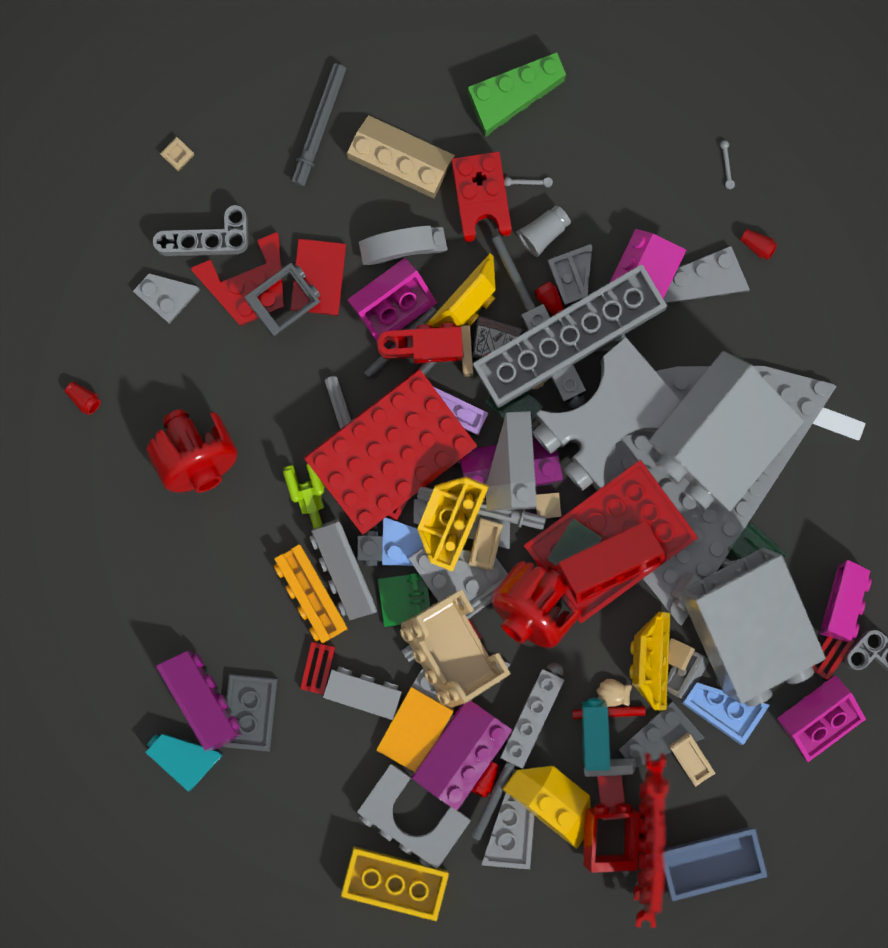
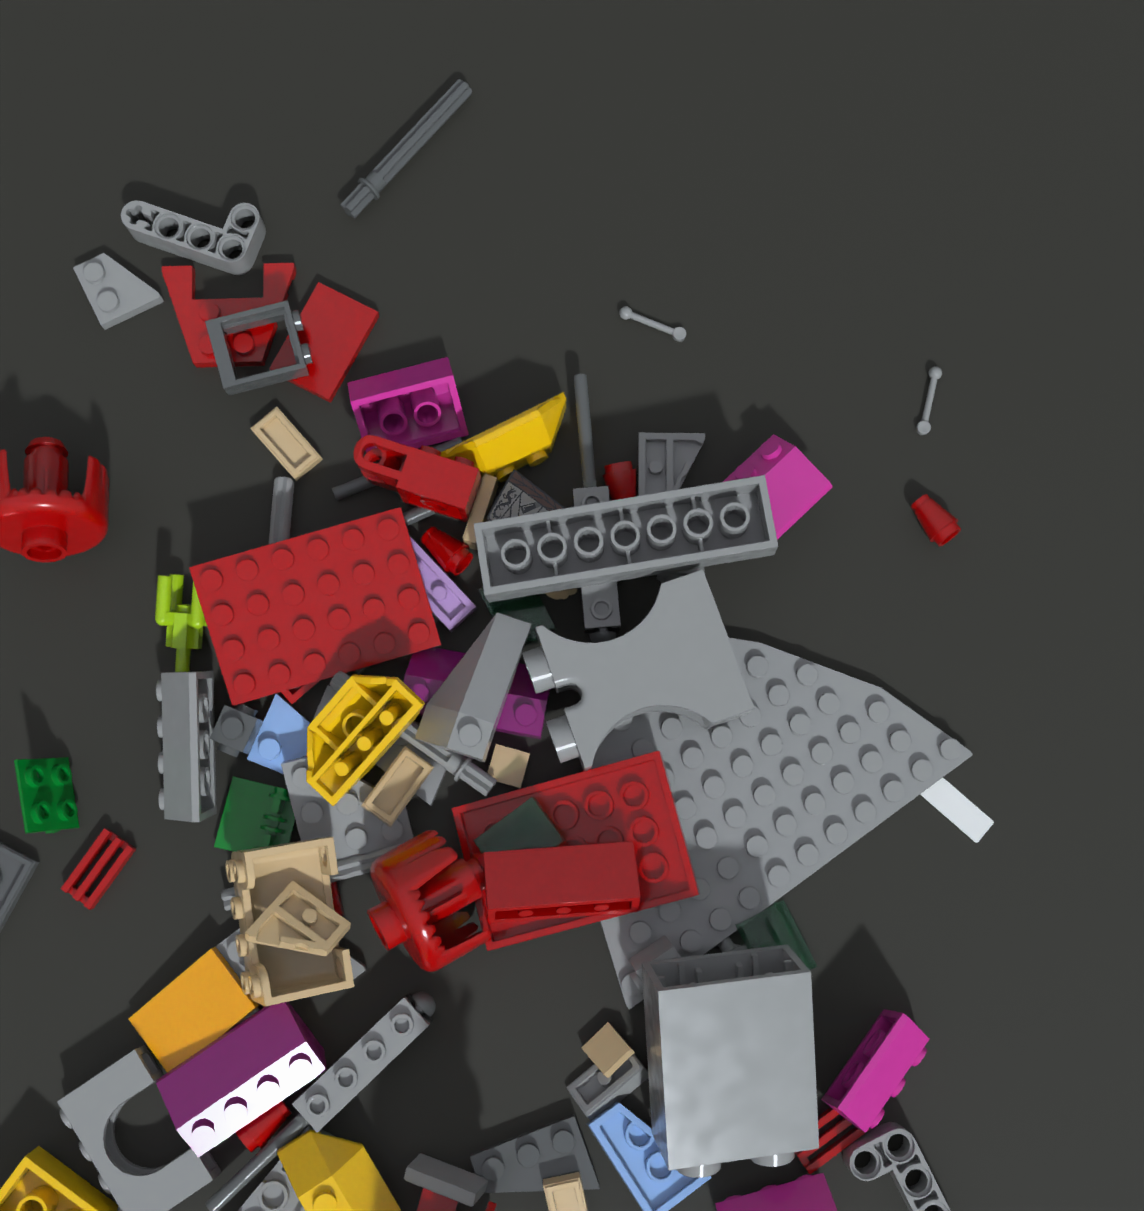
camera: 20 degrees right, 5 degrees down
(177, 154) = (209, 119): tan tile -> none
(270, 634) = (46, 794): none -> green hinge
(310, 593) = (130, 761): light orange brick -> none
(321, 354) = (286, 443): none -> tan tile
(362, 693) = (142, 930): light grey brick -> none
(400, 156) = (495, 227): tan slope -> none
(402, 243) = (452, 333): light grey arch -> none
(455, 384) = (447, 550): none -> red cone
(461, 649) = (299, 923): none -> tan wing
(481, 201) = (582, 321): red brick -> none
(513, 91) = (682, 196): bright green wedge -> none
(543, 230) = (648, 391): light grey plant -> none
(595, 735) = (441, 1127): teal slope -> none
(614, 692) = (496, 1069): tan animal -> none
(616, 712) = (477, 1094): red bar -> none
(650, 660) = (565, 1047): yellow wedge -> none
(707, 277) = (846, 538): light grey wing -> none
(724, 433) = (793, 758): light grey brick -> none

